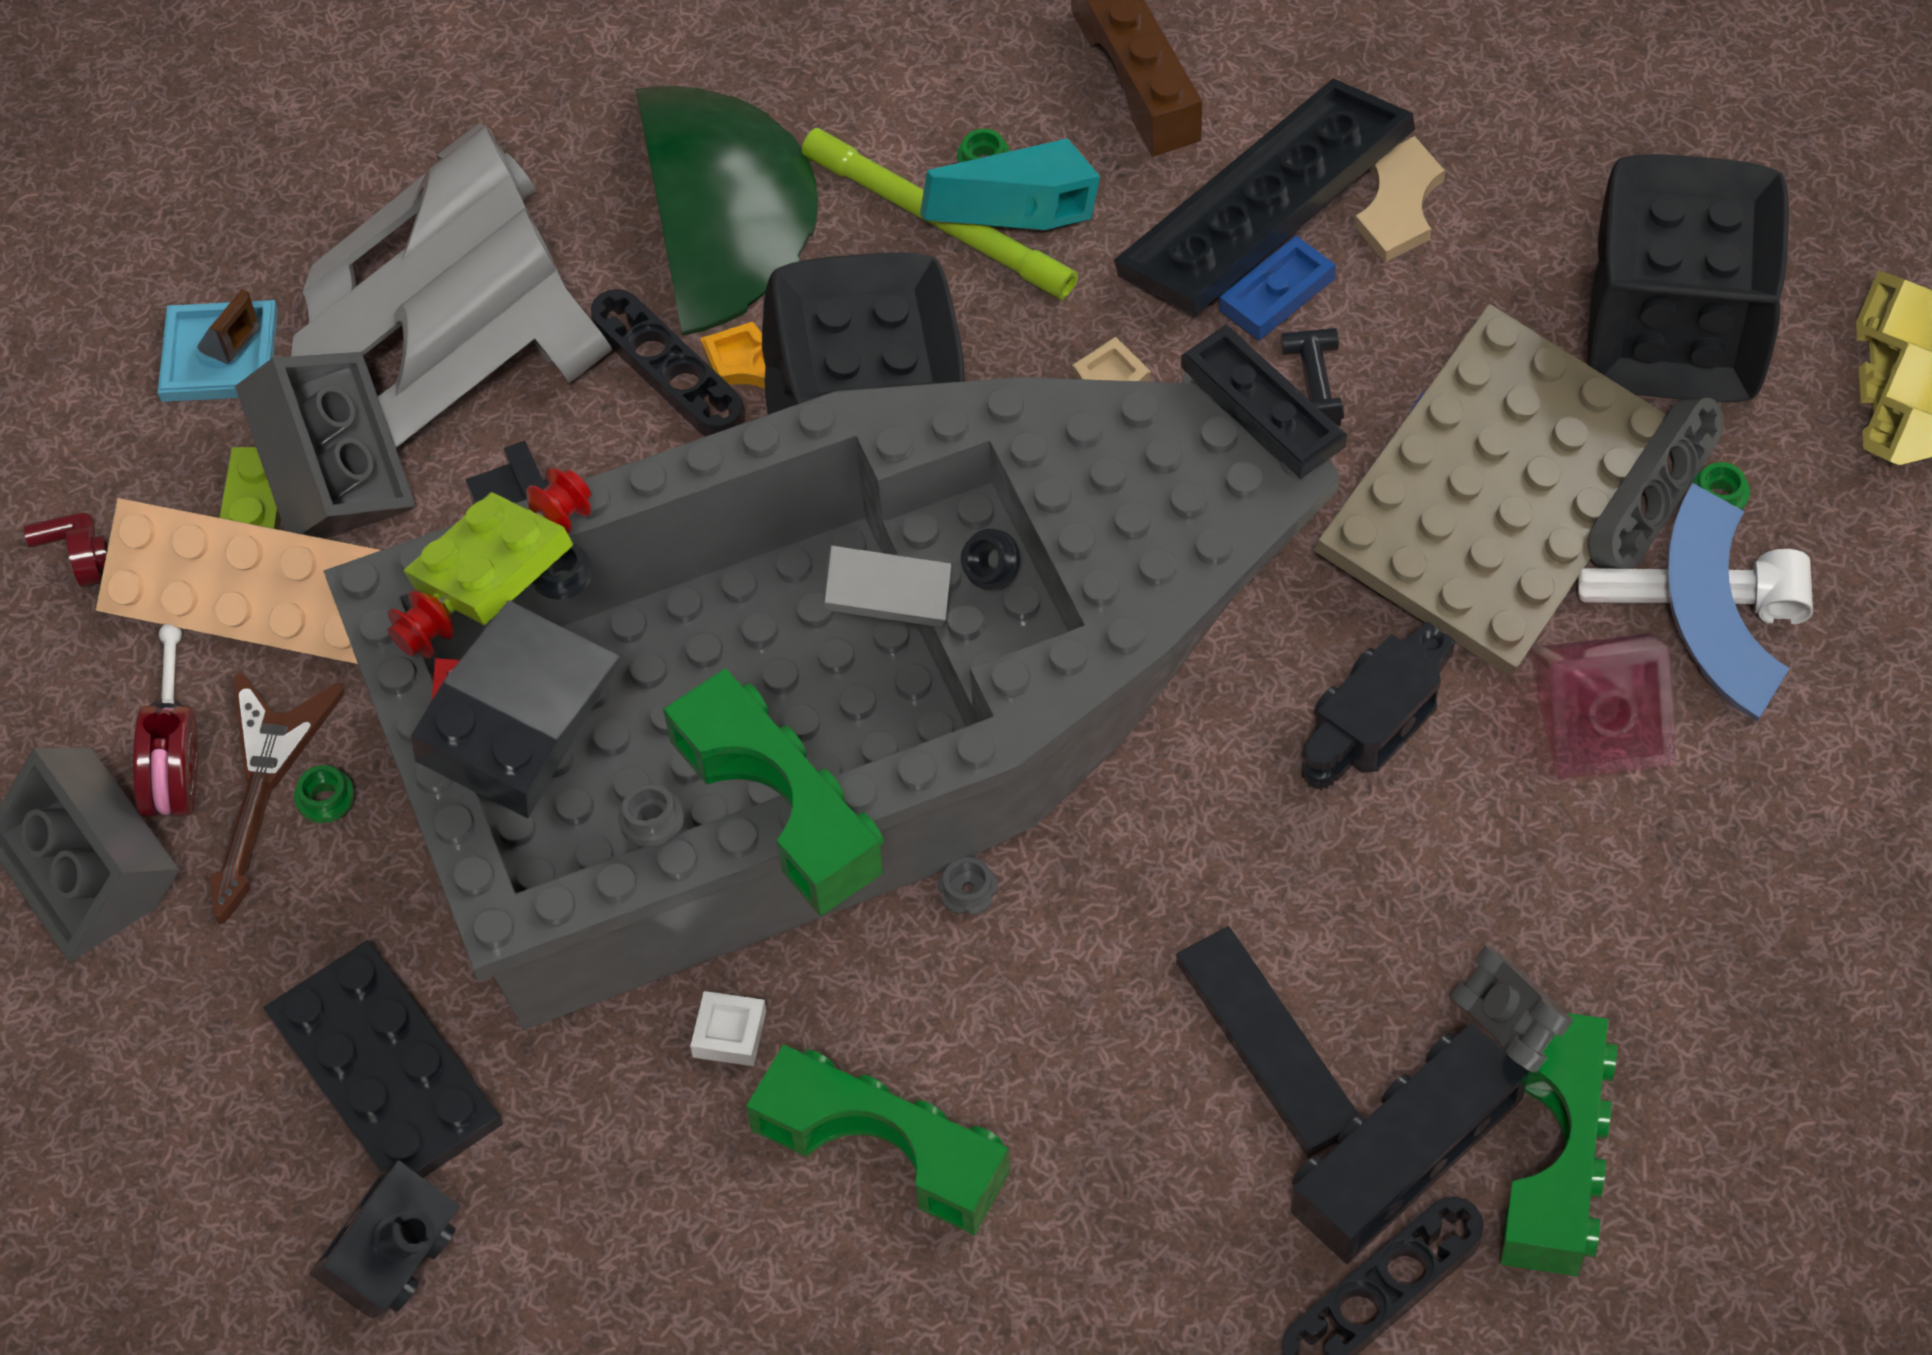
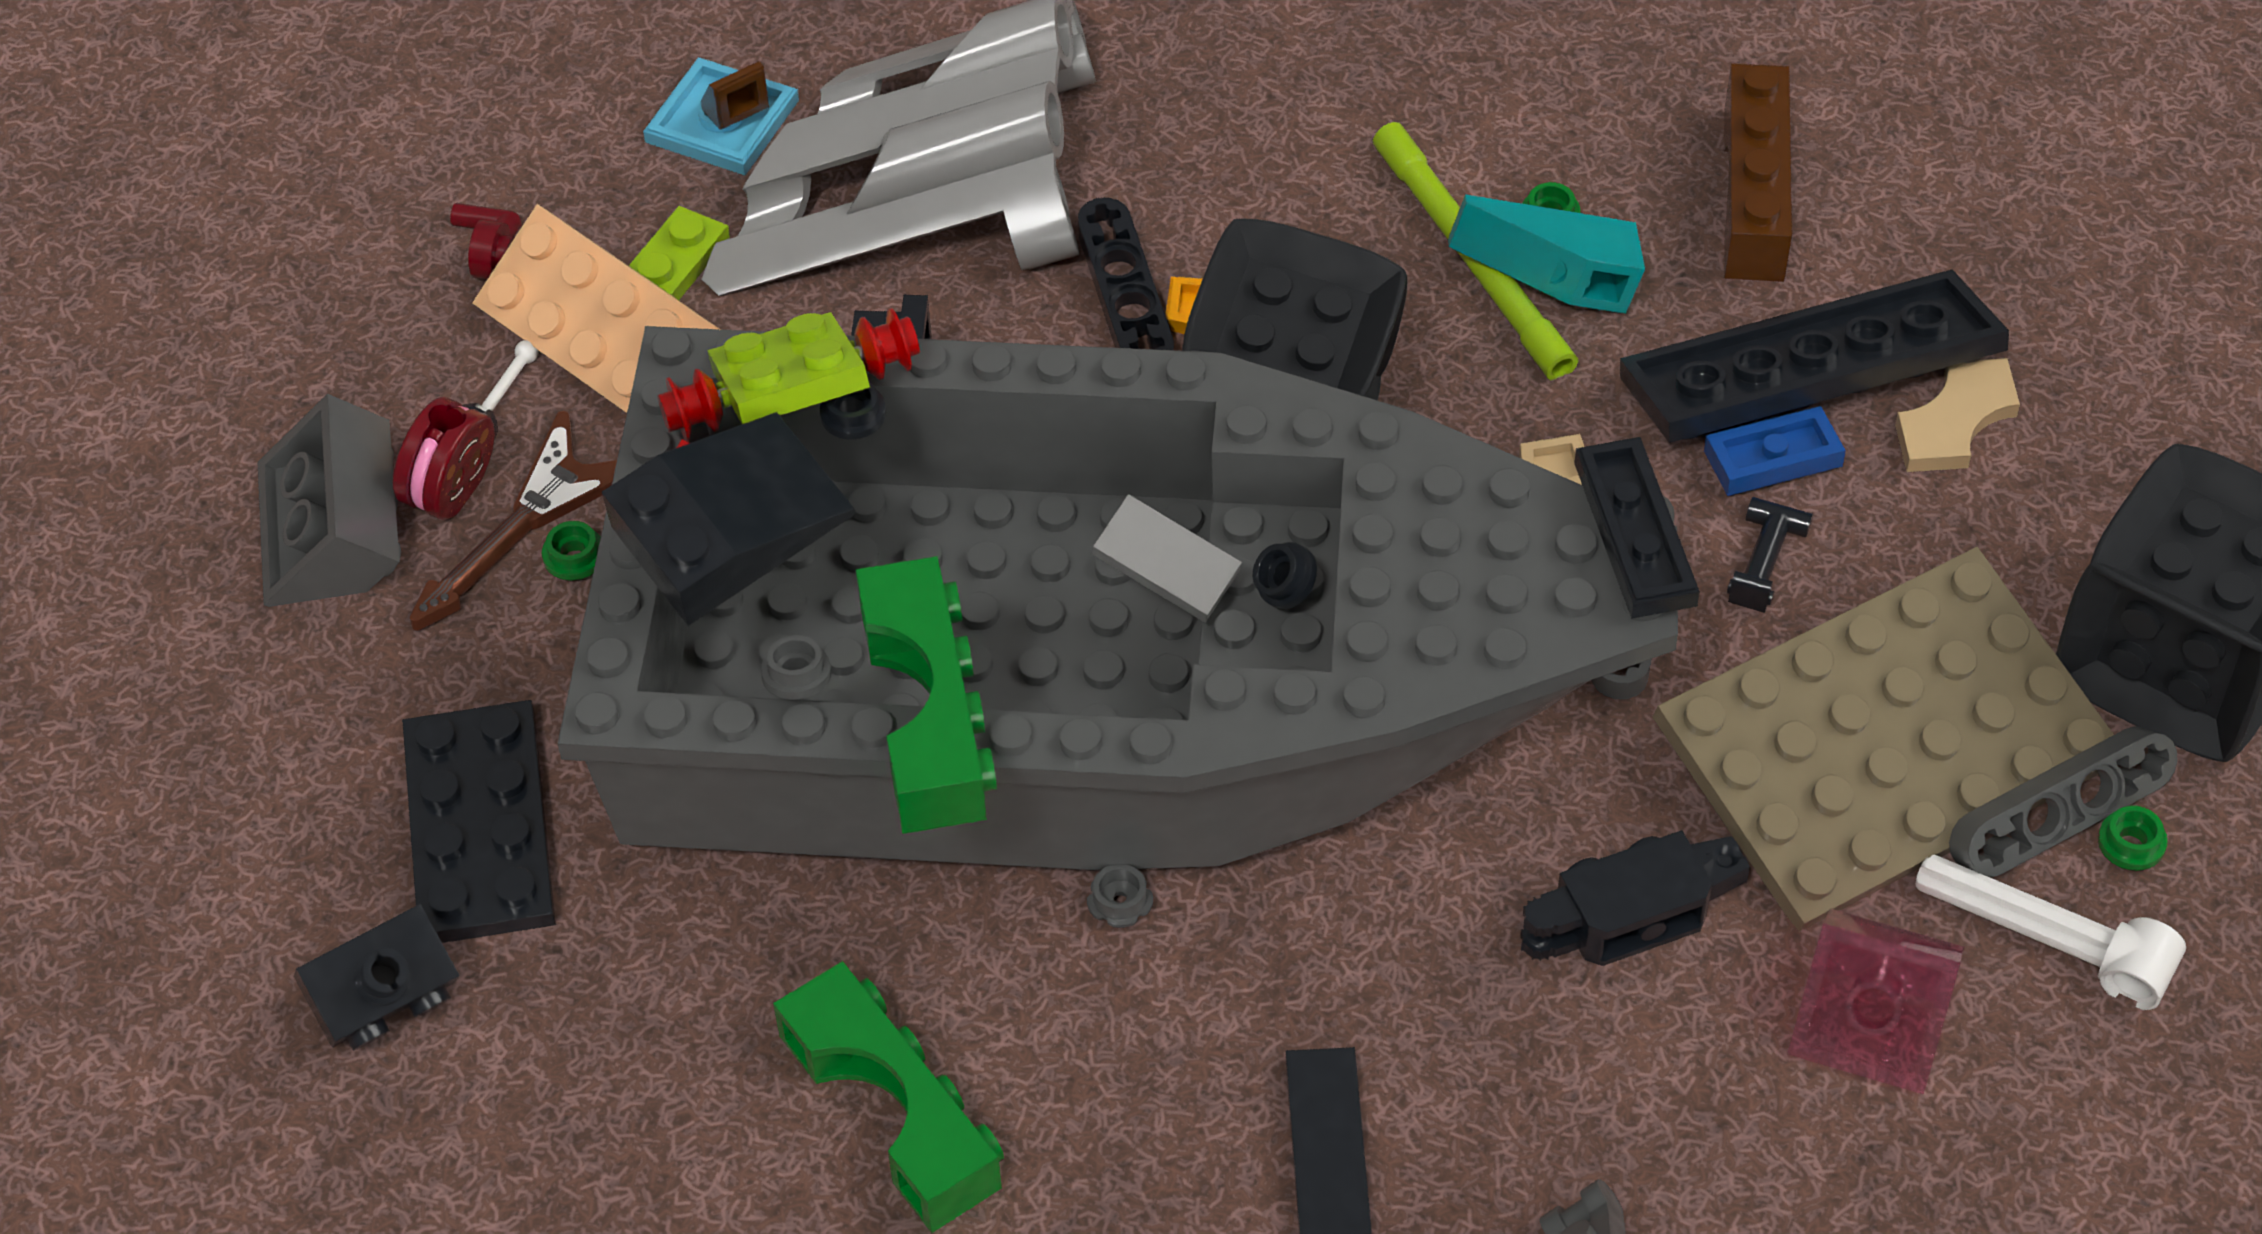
camera: 25 degrees right, 5 degrees down
(324, 443) = (753, 229): dark grey slope -> none
(728, 198) = (1272, 143): dark green brick -> none
(728, 1028) = (810, 928): white plate -> none
(1706, 609) = (2039, 943): medium blue tile -> none

